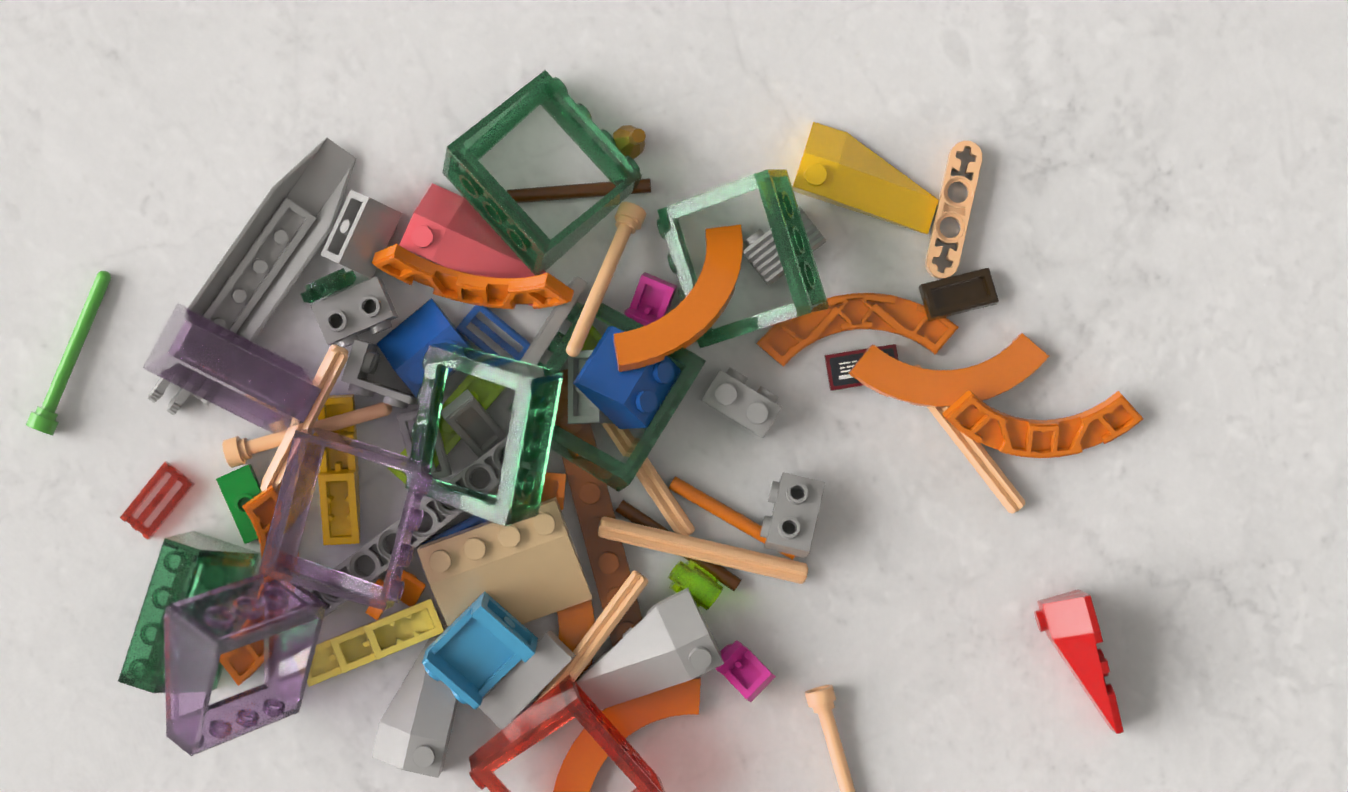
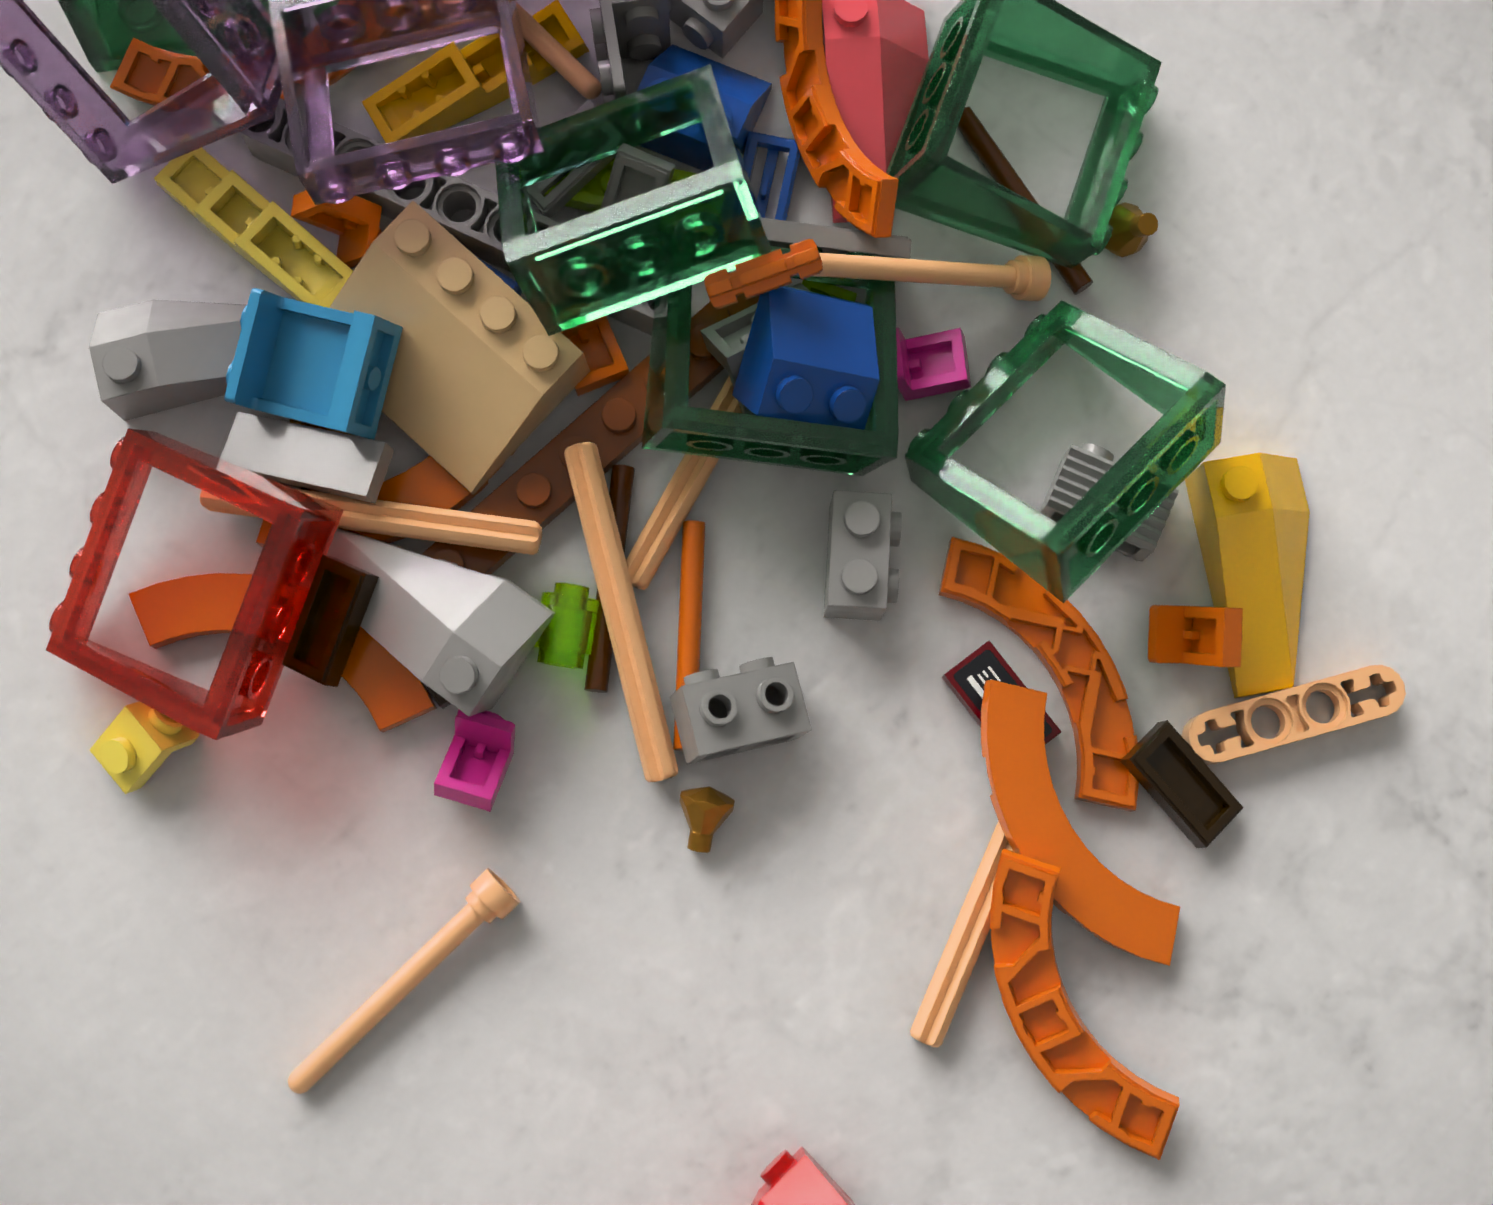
camera: 60 degrees right, 10 degrees down
(571, 383) = (763, 273): none -> orange axle
(627, 711) = (330, 621): none -> dark brown tile
(695, 313) = (948, 408): orange tile -> none
(837, 561) = (705, 812): none -> pearl gold rock
(882, 241) = (1195, 635): none -> orange bracket

